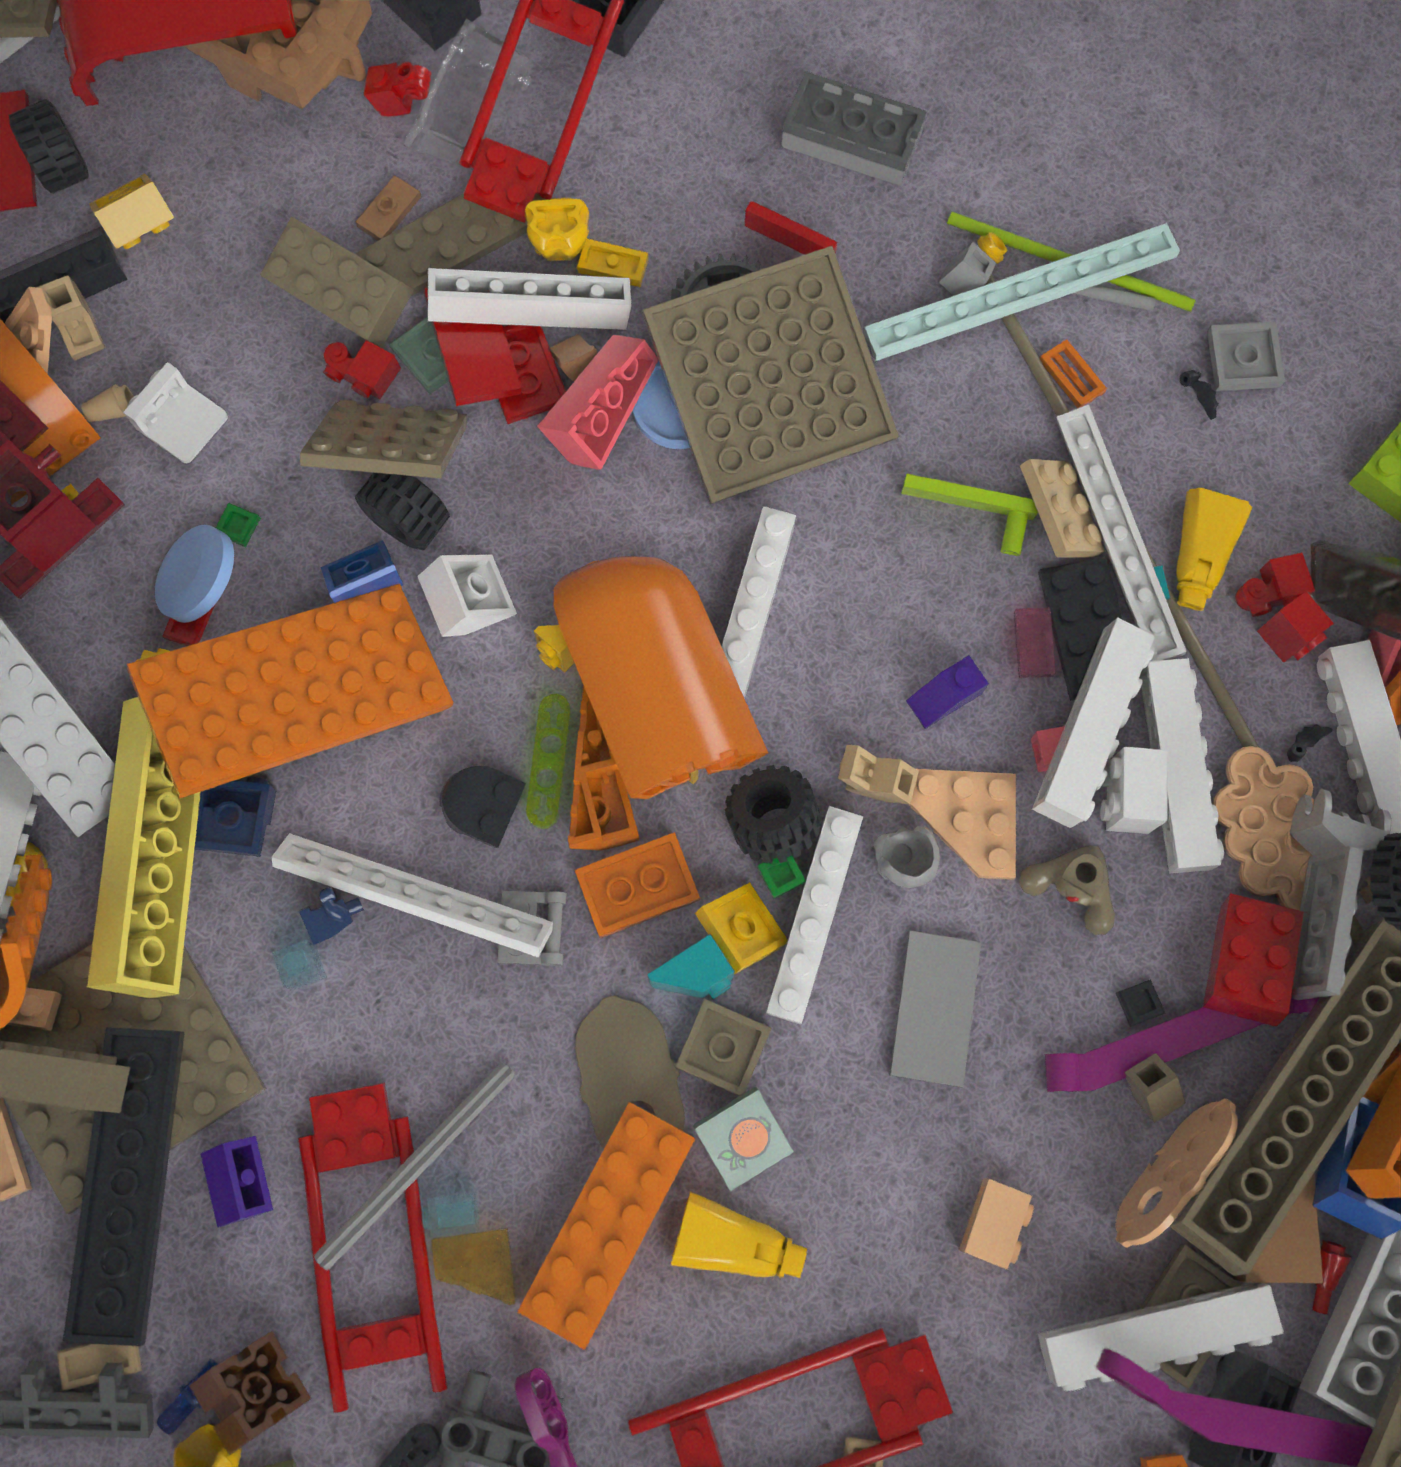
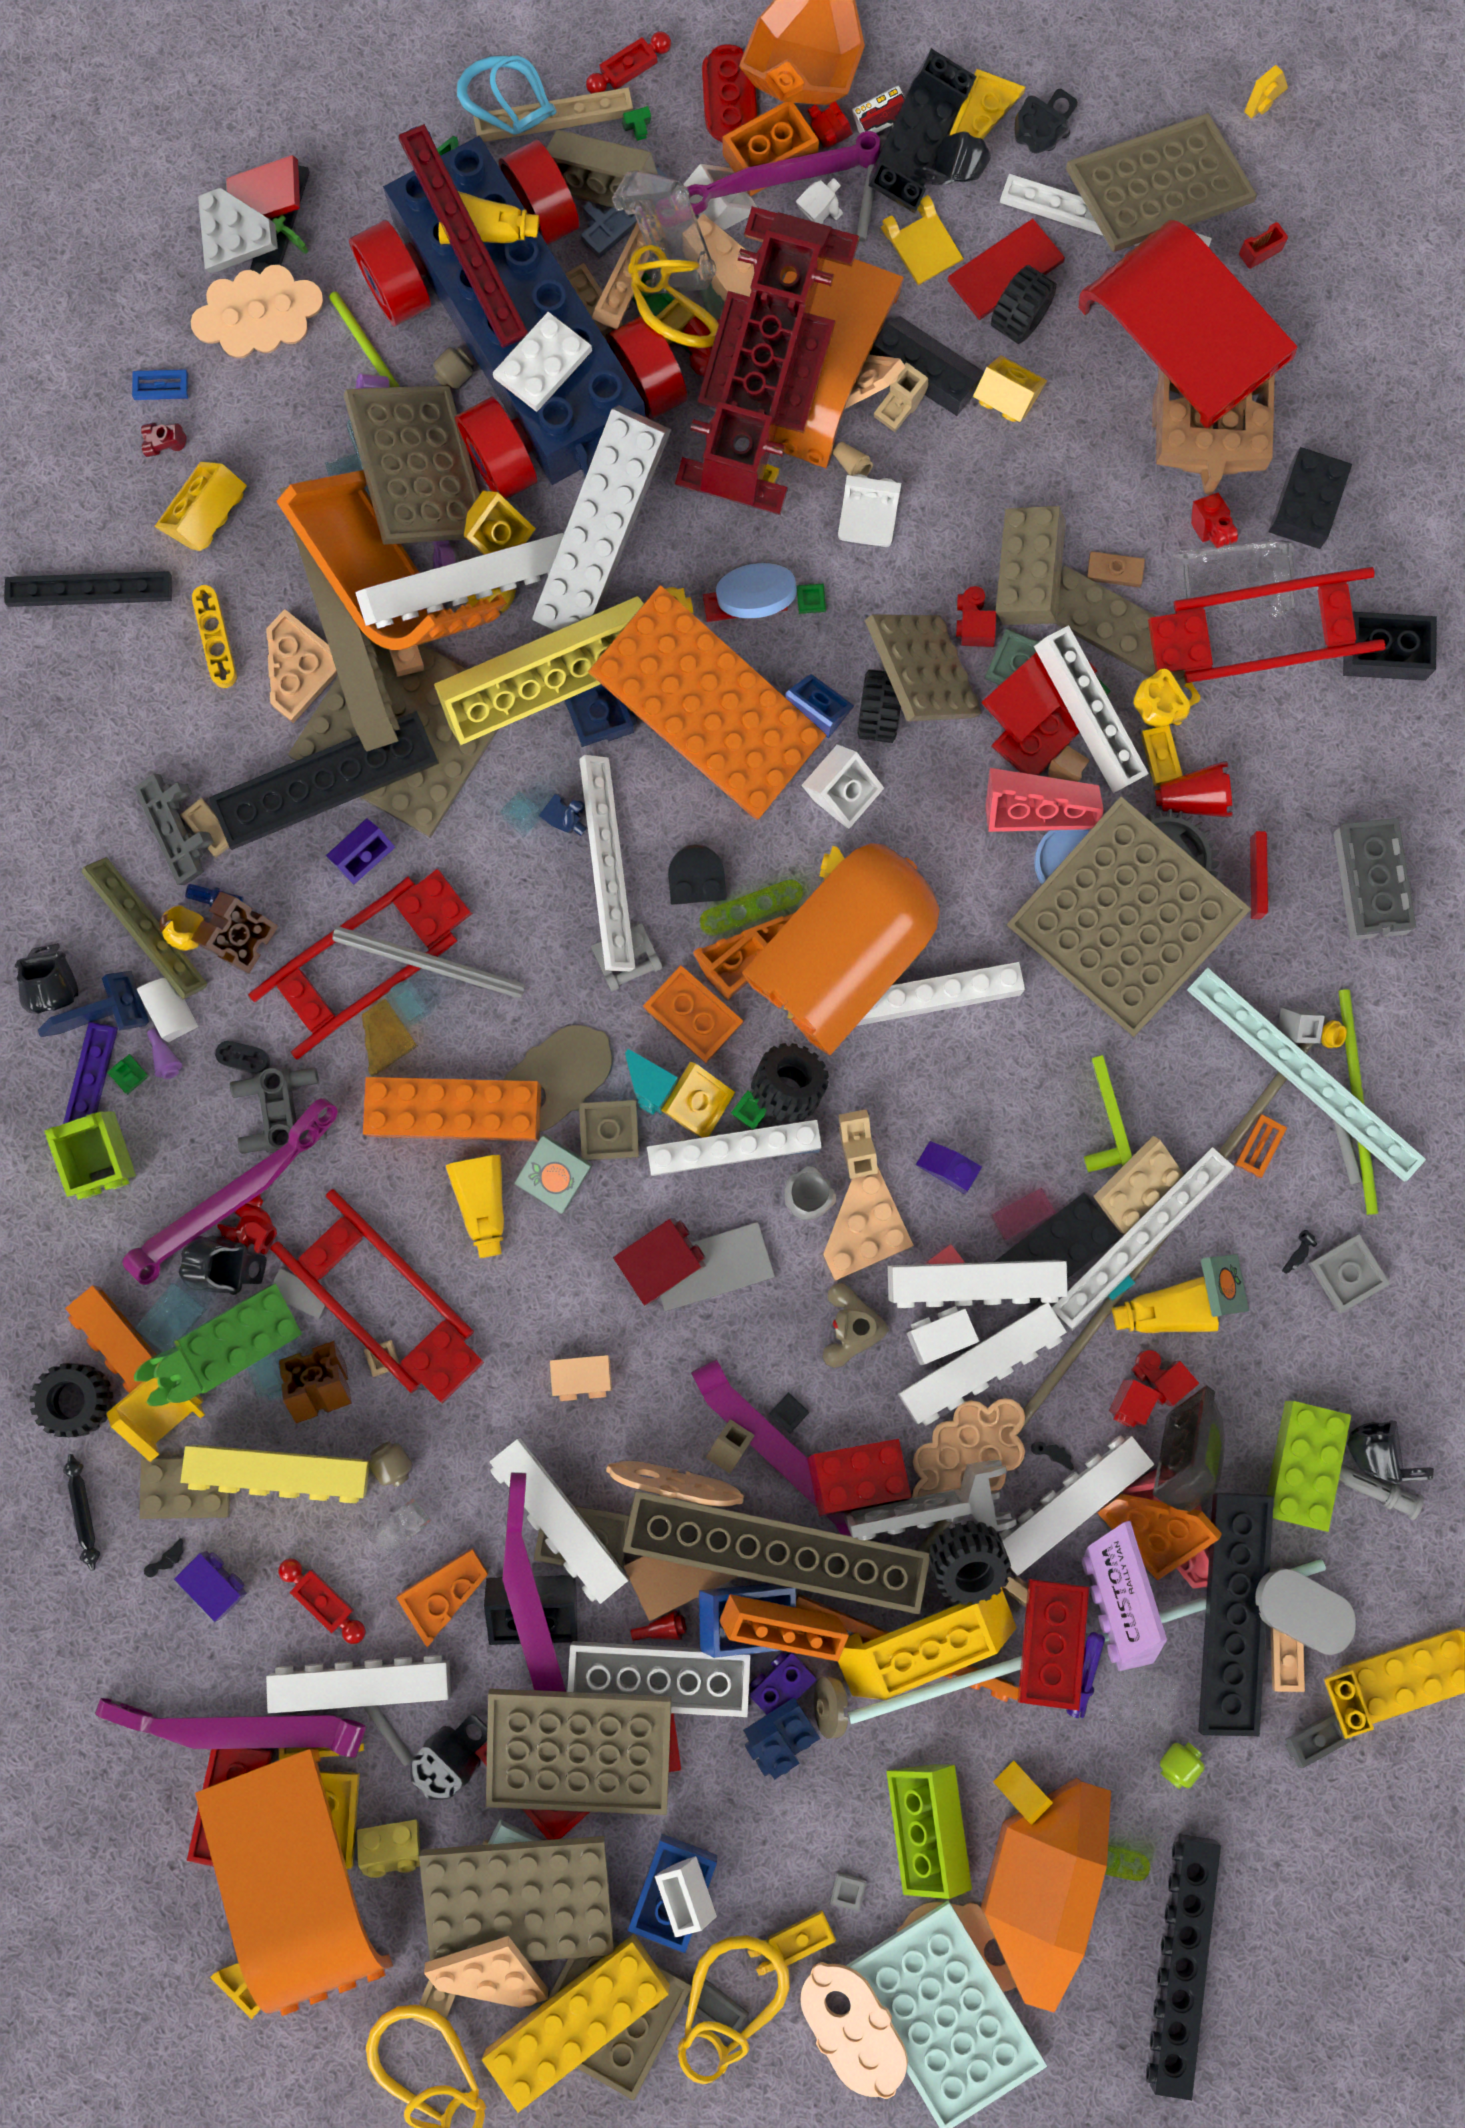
camera: 65 degrees right, 5 degrees up
(674, 243) = (1198, 792): none -> red cone
(906, 1062) = (660, 1260): none -> dark red panel
(1208, 477) = (1224, 1285): none -> sand green tile

